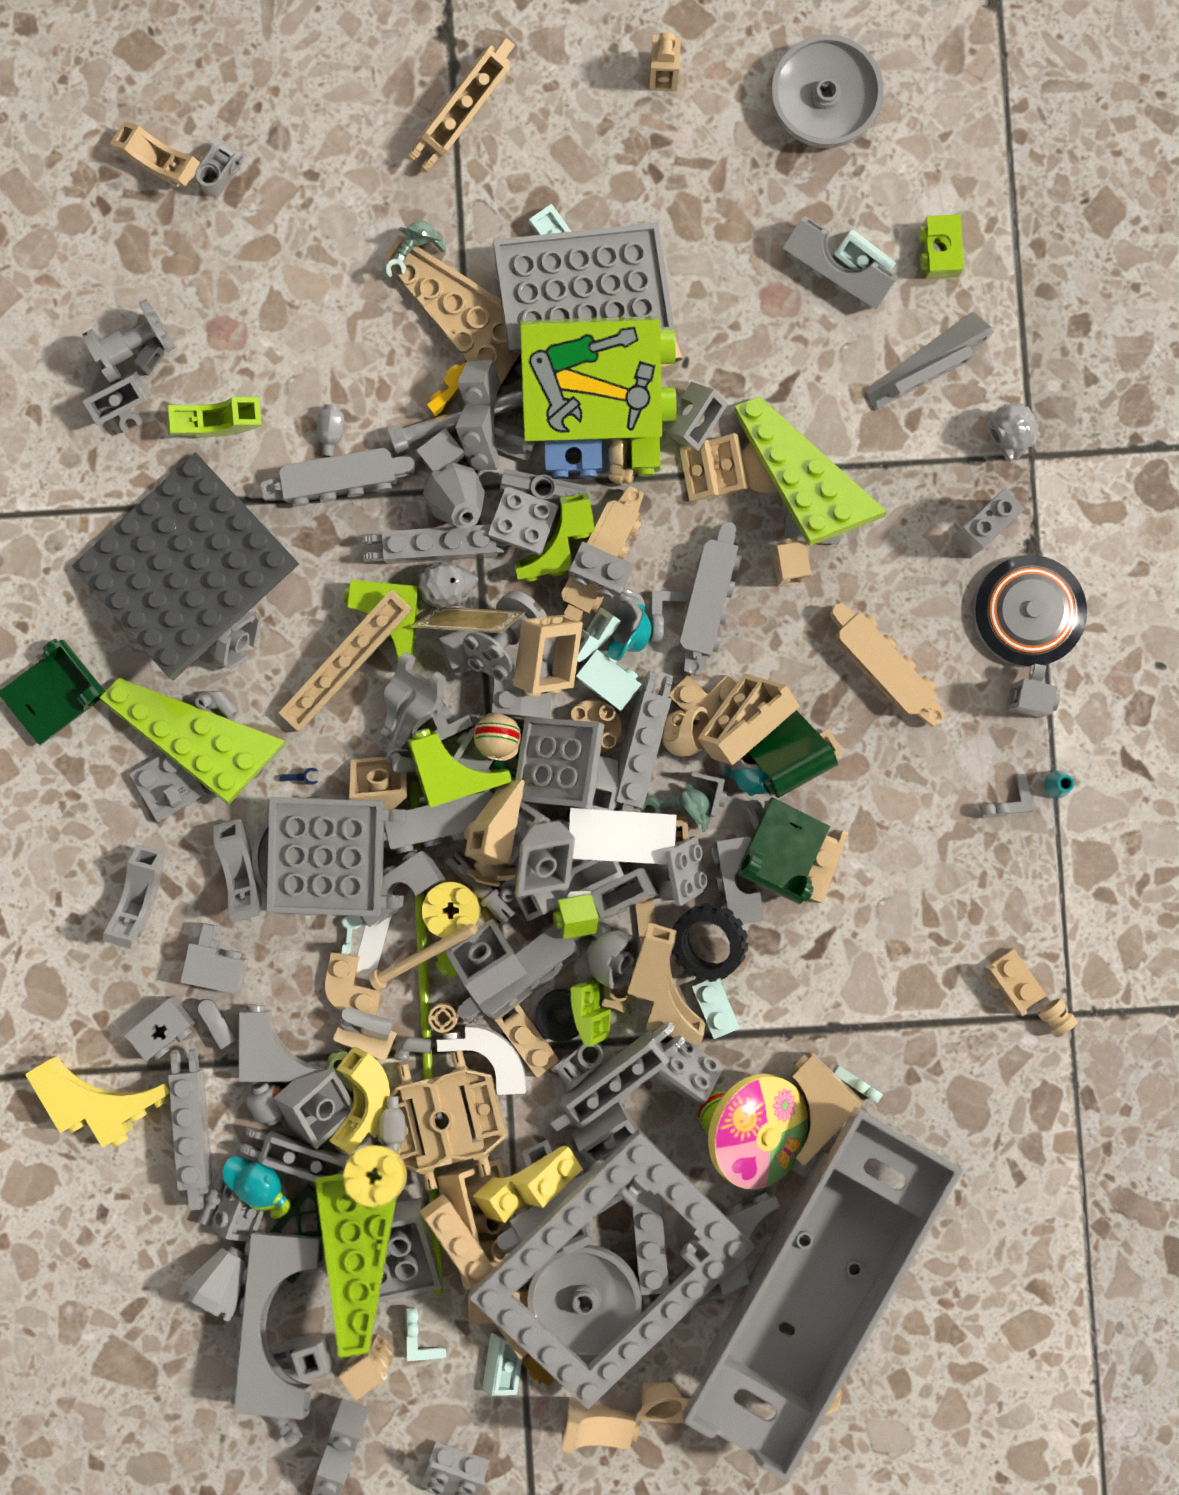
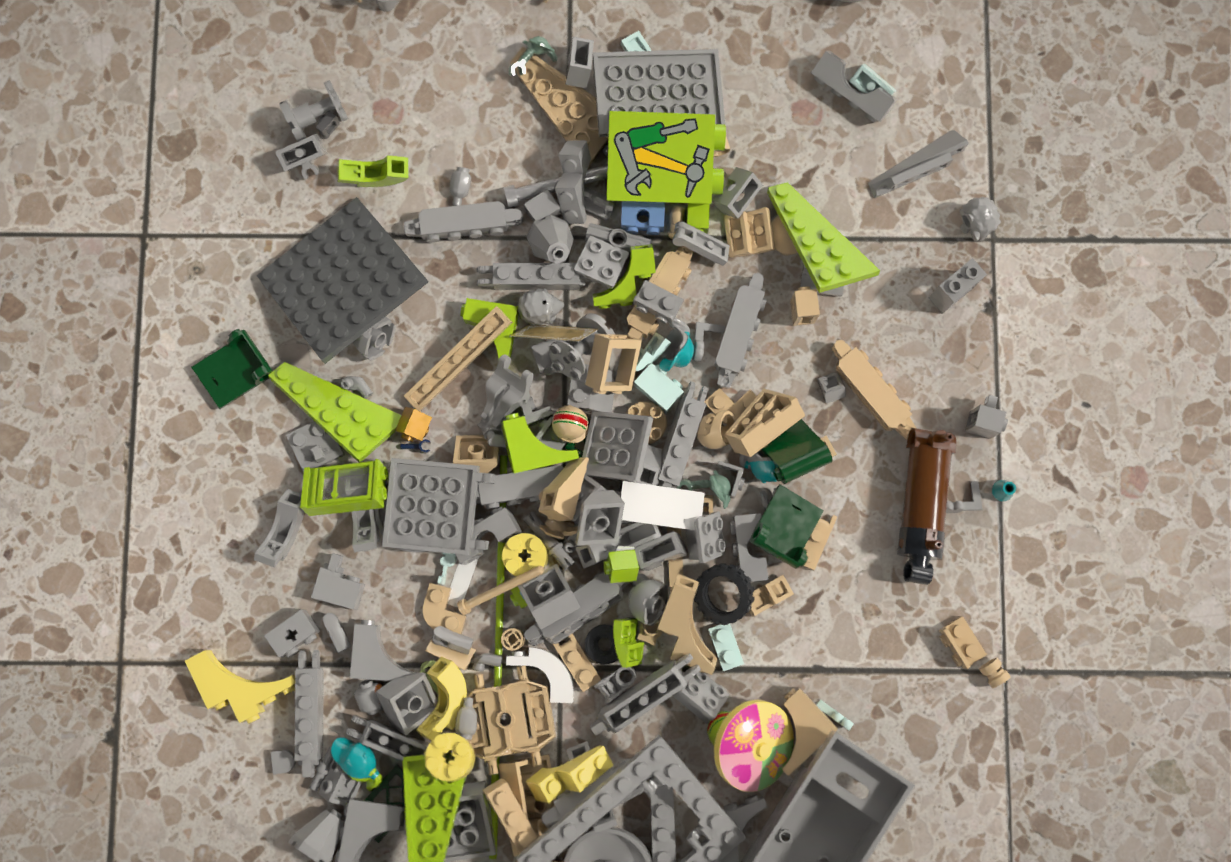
camera: 10 degrees right, 5 degrees down
(161, 1190) = (282, 761): none -> light grey tile
(211, 839) = (344, 488): none -> lime door
(294, 750) = (413, 425): none -> brick
(442, 399) = (546, 170): yellow slope -> none
(476, 253) = (579, 62): none -> light grey brick
(604, 1134) = (631, 738): light grey brick -> none
(651, 487) = (701, 243): none -> light grey plate
(768, 938) = (770, 595): none -> tan slope
(832, 664) = (832, 387): none -> light grey slope
(948, 232) = (935, 68): lime brick -> none
(959, 807) = (925, 502): none -> reddish brown piece
(1030, 611) = (986, 356): dish -> none

